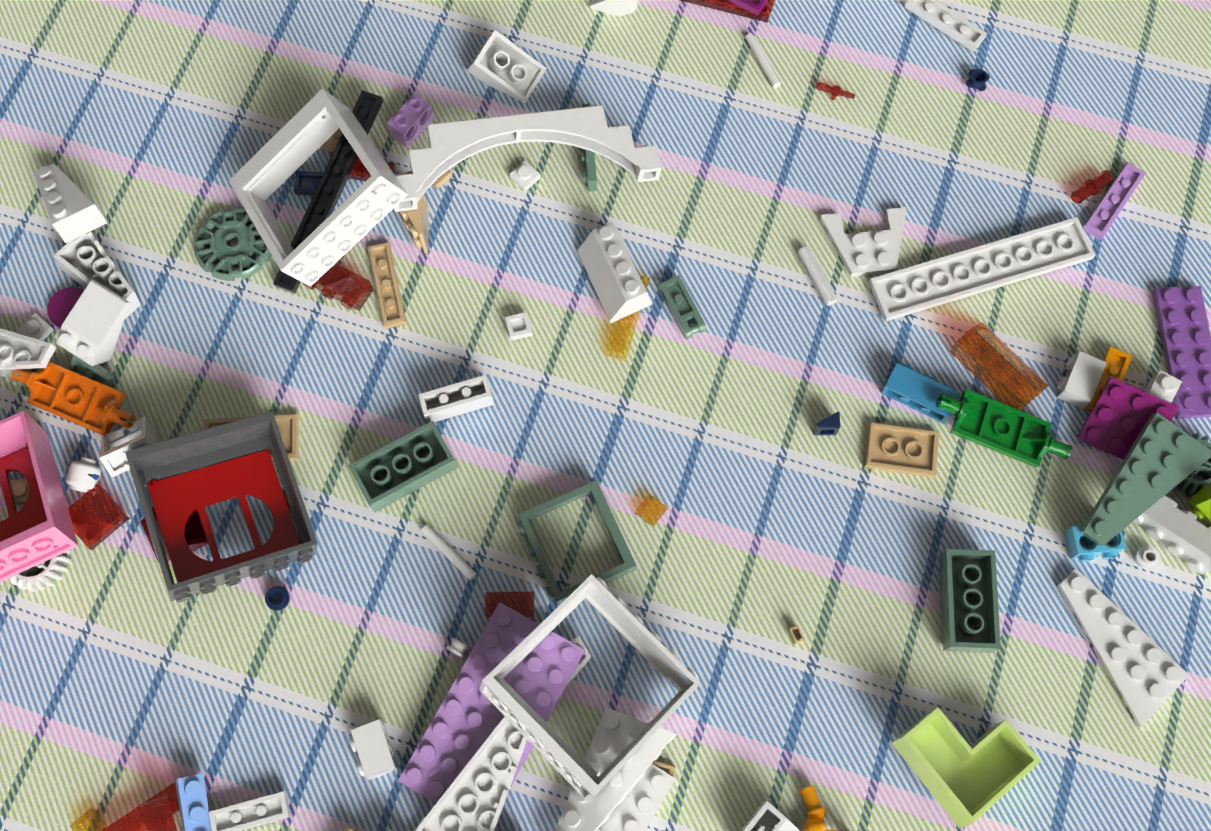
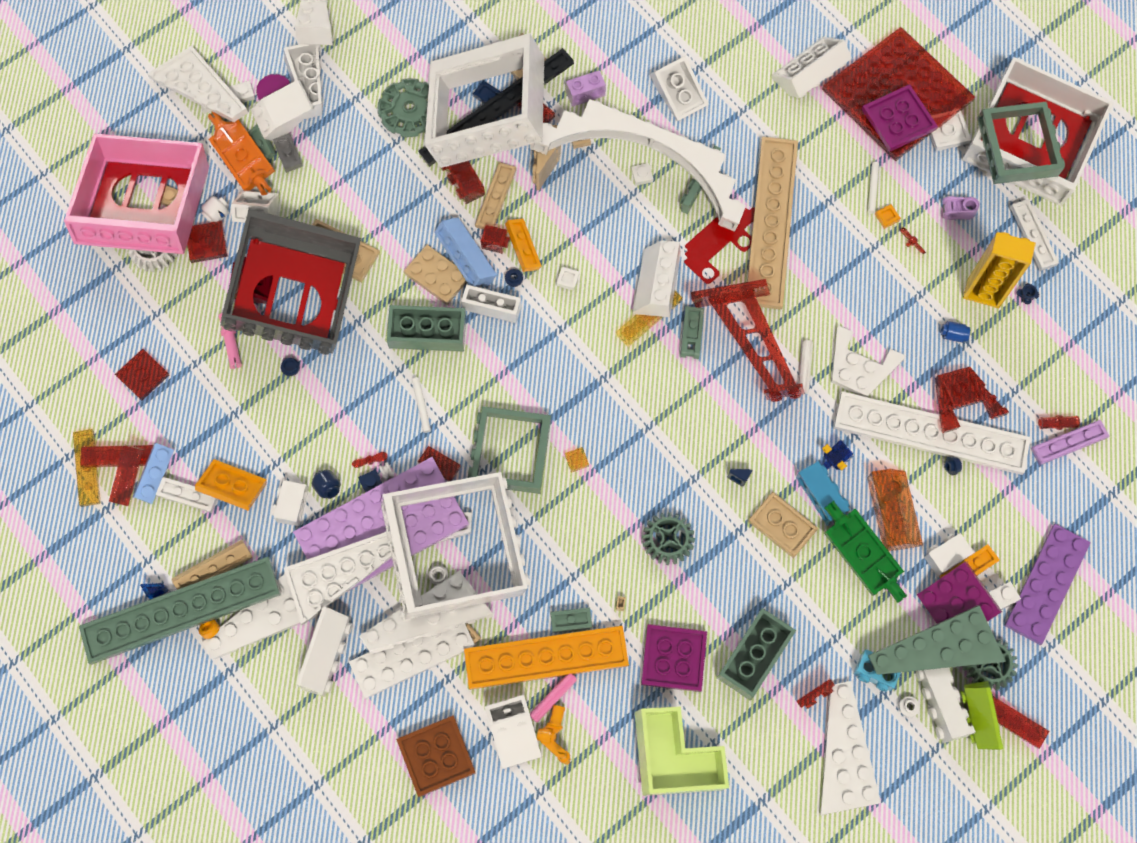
camera: 30 degrees right, 0 degrees up
(111, 709) = (142, 374): none -> clear red tile
(128, 366) = (287, 152): none -> flat silver plate
(195, 615) = (231, 346): none -> bright pink pin
(293, 772) = (230, 484): none -> light orange plate
(376, 403) = (436, 274): none -> tan plate
(393, 362) = (465, 253): none -> light blue brick
(400, 704) = (326, 484): none -> dark blue head
(415, 329) = (494, 239): none -> clear red brick
(430, 646) = (382, 456): none -> clear red piece
(447, 670) = (370, 480): none -> dark blue plate
(449, 318) = (523, 245): none -> light orange plate
(461, 364) = (514, 282): none -> dark blue plate
(578, 726) = (437, 569): none -> white plate
(640, 198) = (712, 240): none -> red piece
(688, 152) = (773, 217): none -> tan plate
(717, 234) = (747, 294): none -> clear red piece
(757, 685) = (571, 620): none -> sand green plate
(757, 744) = (546, 657): none -> light orange plate
(790, 534) = (663, 533): none -> sand green gear
(793, 780) = (552, 697): none -> bright pink axle
(795, 80) = (887, 216): none -> light orange tile
(857, 35) = (957, 207): none -> lavender piece
(888, 657) = (674, 658): none -> magenta plate
(909, 346) = (837, 456): none -> clear blue piece
(937, 155) = (955, 331): none -> blue brick
(952, 65) = (999, 269): none -> yellow brick
(980, 211) = (960, 390): none -> clear red wing
(1024, 288) = (953, 465): none -> dark blue plate
(1050, 613) = (809, 699): none -> clear red plate

